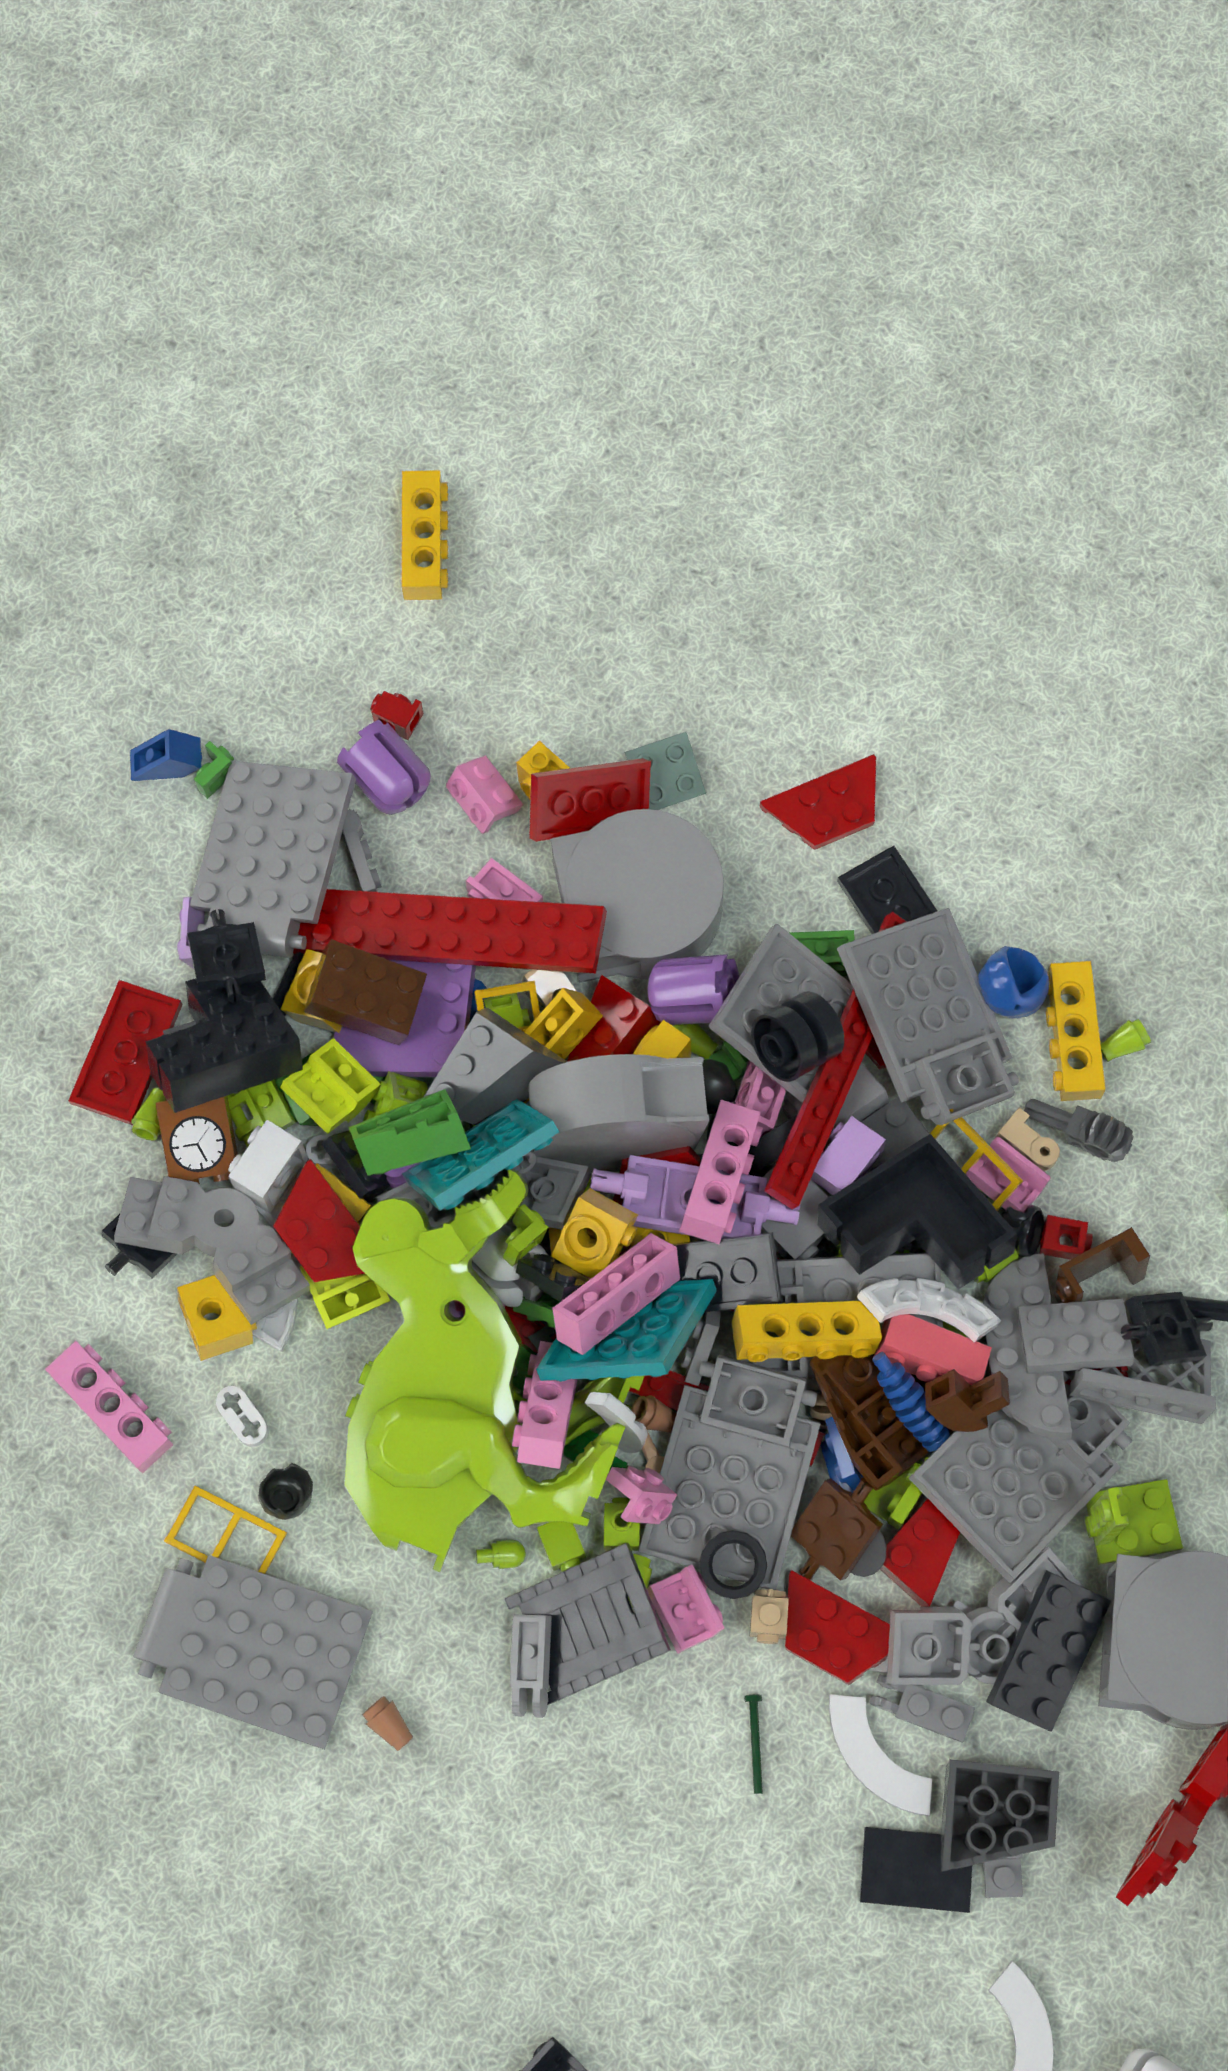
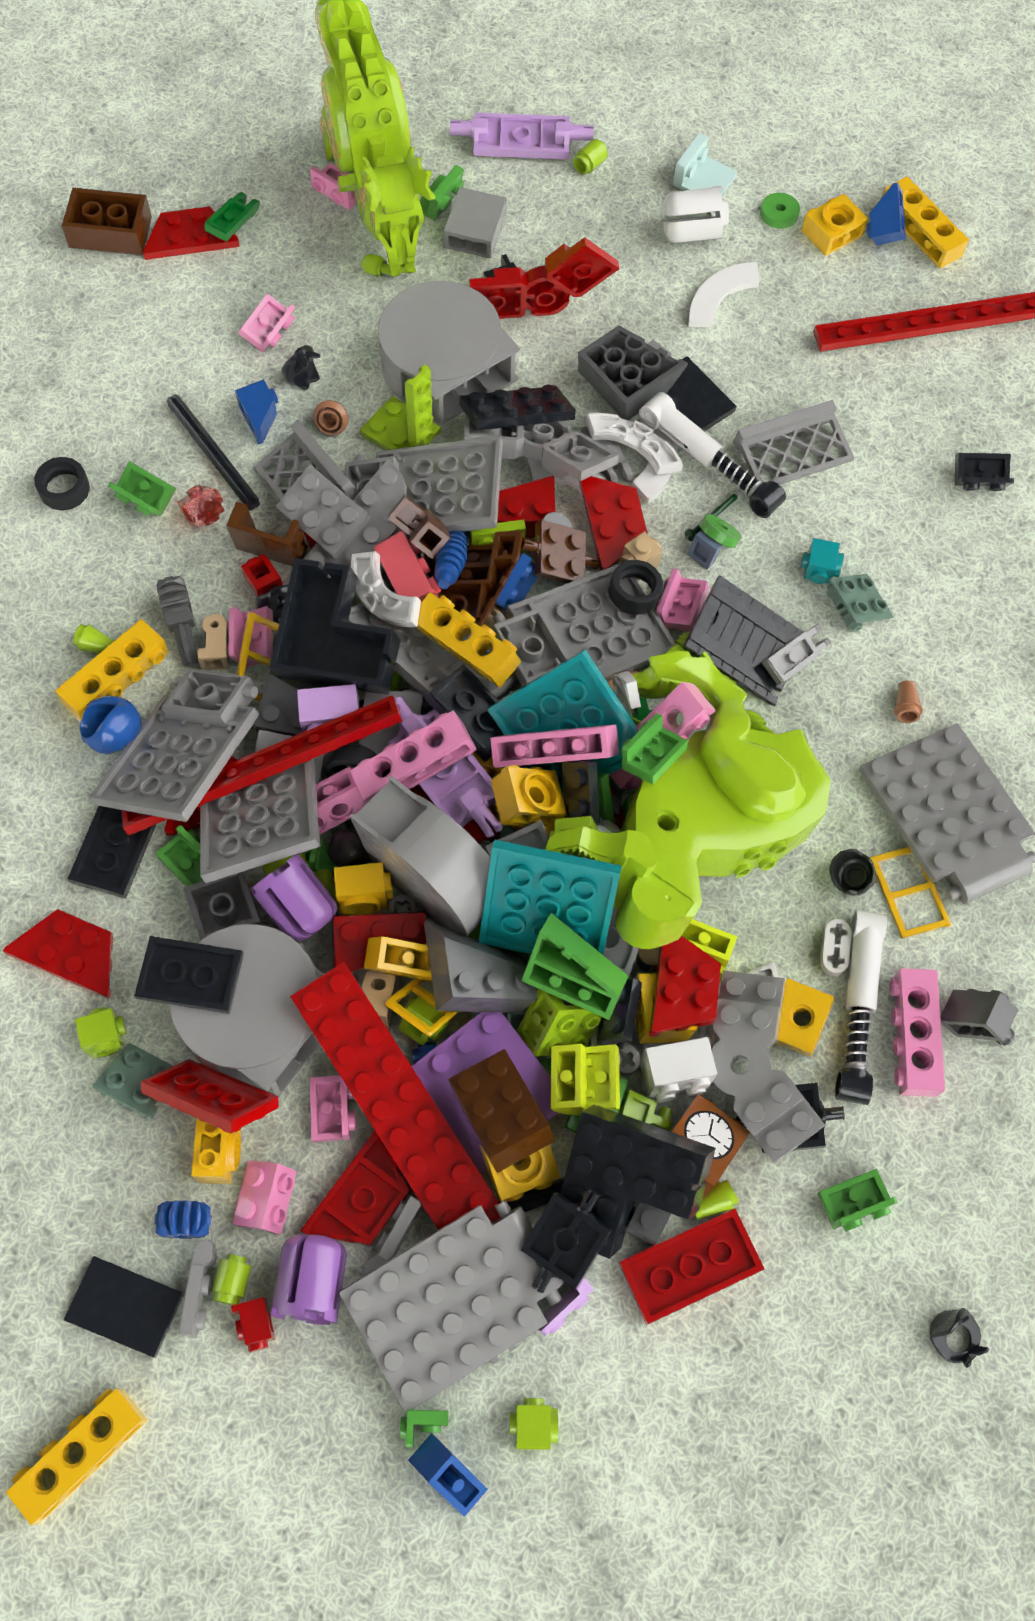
camera: 140 degrees left, 5 degrees down
(42, 1220) = (856, 1199): none -> bright green bracket
(68, 1462) = (980, 1015): none -> dark grey brick
(135, 841) = (534, 1425): none -> lime brick
(178, 1386) = (868, 933): none -> piece
(412, 854) = (361, 1198): none -> red wing
(443, 721) = (231, 1279): none -> lime brick
(460, 694) = (198, 1286): none -> light grey hinge
(498, 640) = (124, 1307): none -> black tile
(518, 719) = (182, 1219): none -> blue gear
(527, 1361) = (652, 750): none -> bright green bracket
(529, 1793) = (858, 600): none -> sand green hinge
(601, 1795) = (822, 561): none -> teal brick
(649, 1497) = (647, 647): bright pink bracket -> none
(699, 853) = (189, 974): none -> black tile
(721, 1691) = (704, 550): none -> sand blue tile
(725, 1736) = (720, 531): none -> bright green piece
(730, 774) = (101, 1032): none -> lime brick
(742, 929) = (221, 904): none -> flat silver brick
(786, 1925) = (791, 424): none -> light grey fence
(797, 1036) = (277, 780): black wheel -> none
(824, 1802) = (662, 414): none -> piece
(907, 1749) = (637, 436): none -> white tile
(1166, 1328) = (272, 475): black plate -> none
(1196, 1245) = (201, 505): none -> clear red brick
(1204, 1460) = (330, 417): none -> nougat cone

